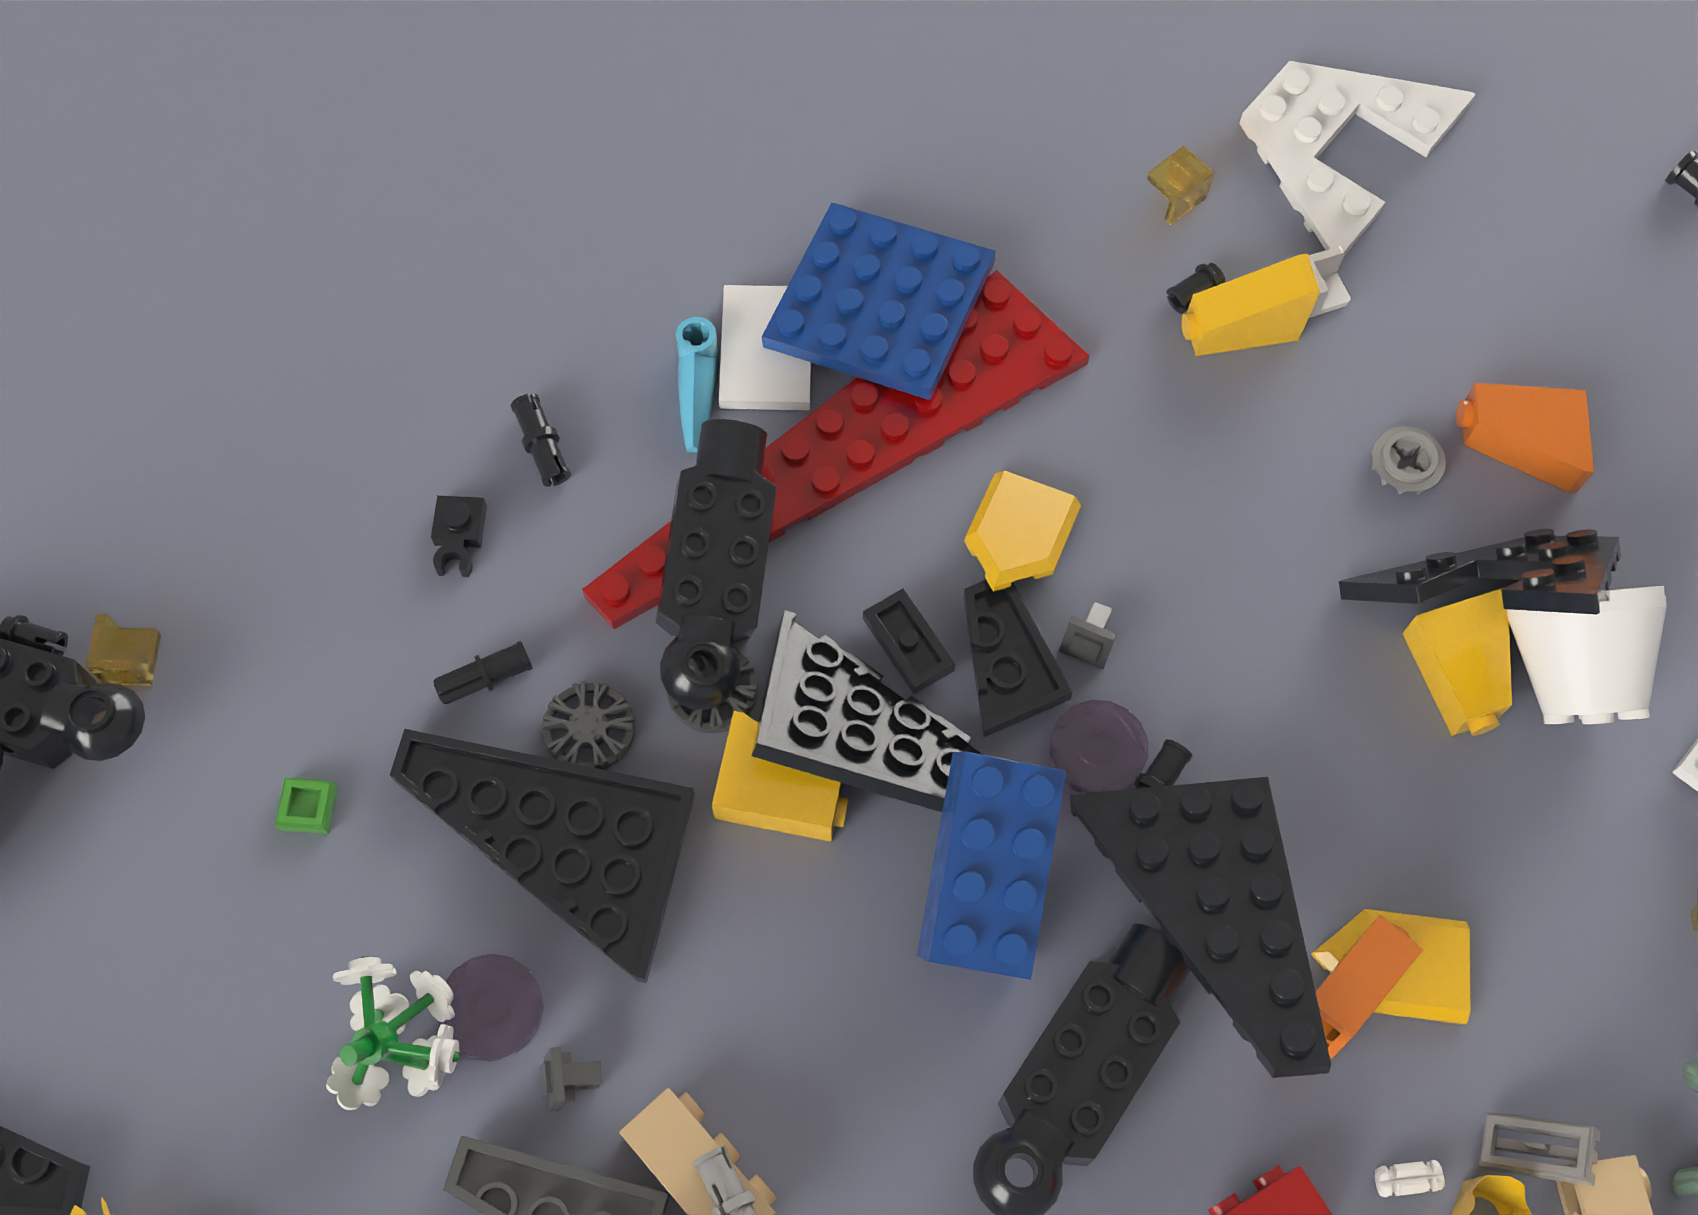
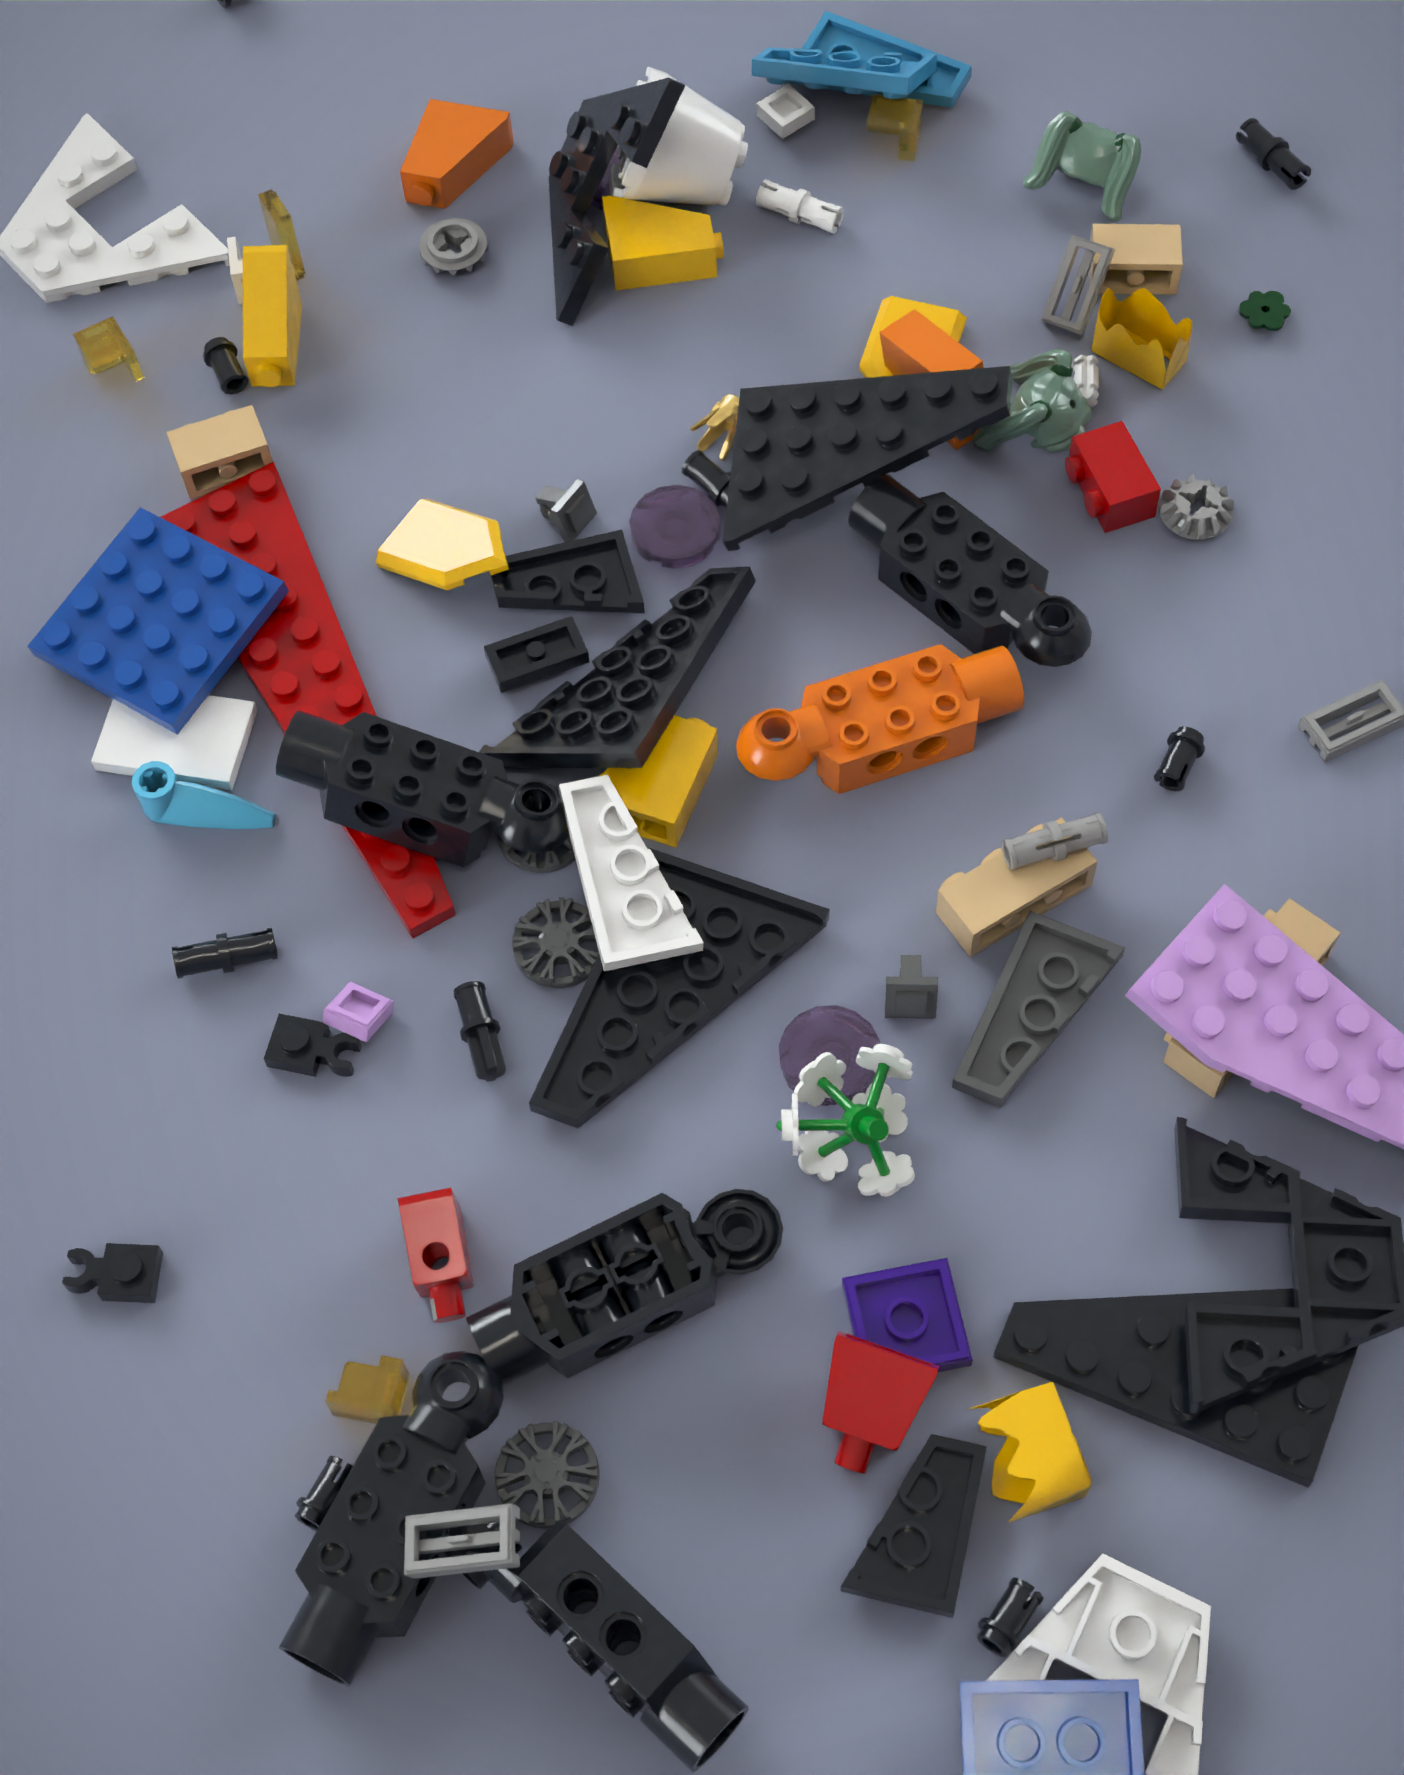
camera: 75 degrees left, 5 degrees down
(55, 818) = (547, 1473): none -> dark grey wheel
(116, 1100) = (872, 1397): none -> red torso
(210, 1126) = (910, 1312): none -> dark purple tile
(217, 848) = (622, 1282): none -> black brick
(234, 435) = (123, 1274): none -> black plate
(247, 676) = (432, 1232): none -> torso
(306, 805) = (584, 1208): bright green tile -> none
(492, 563) = (358, 1011): none -> lavender tile
(631, 768) = (625, 893): none -> white wing
(882, 1002) = (884, 718): none -> orange brick
(991, 865) = (779, 601): blue brick -> none
(1088, 305) = (219, 450): none -> tan brick
(1241, 769) = (721, 418): none -> pearl gold piece
(1349, 1125) = (1044, 406): none -> sand green hair
(1356, 292) = (281, 228): none -> clear yellow tile
(1573, 807) = (799, 206): none -> white pin

